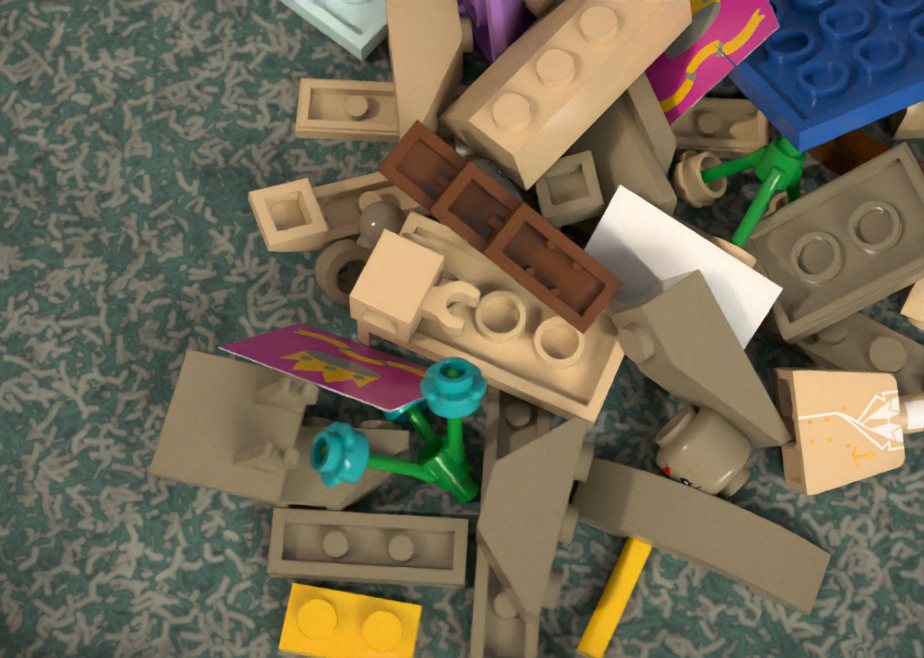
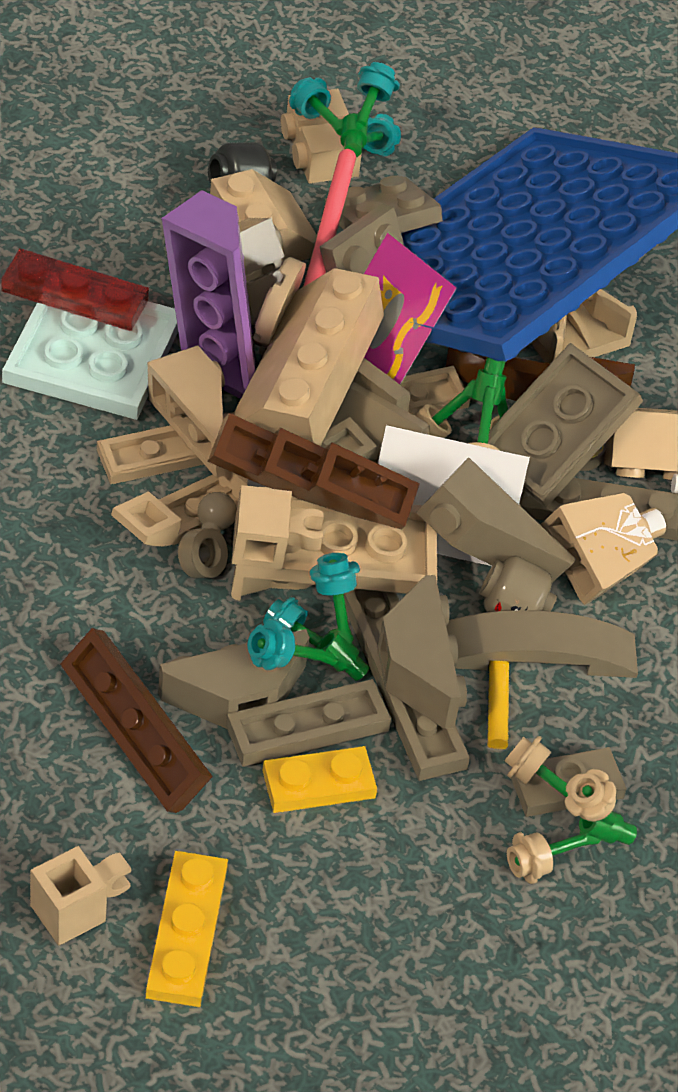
camera: 30 degrees left, 20 degrees down
(171, 509) = (136, 721): none -> reddish brown plate
(232, 427) = (185, 653): dark tan plate -> none
(336, 364) = (239, 595): dark pink sticker -> none

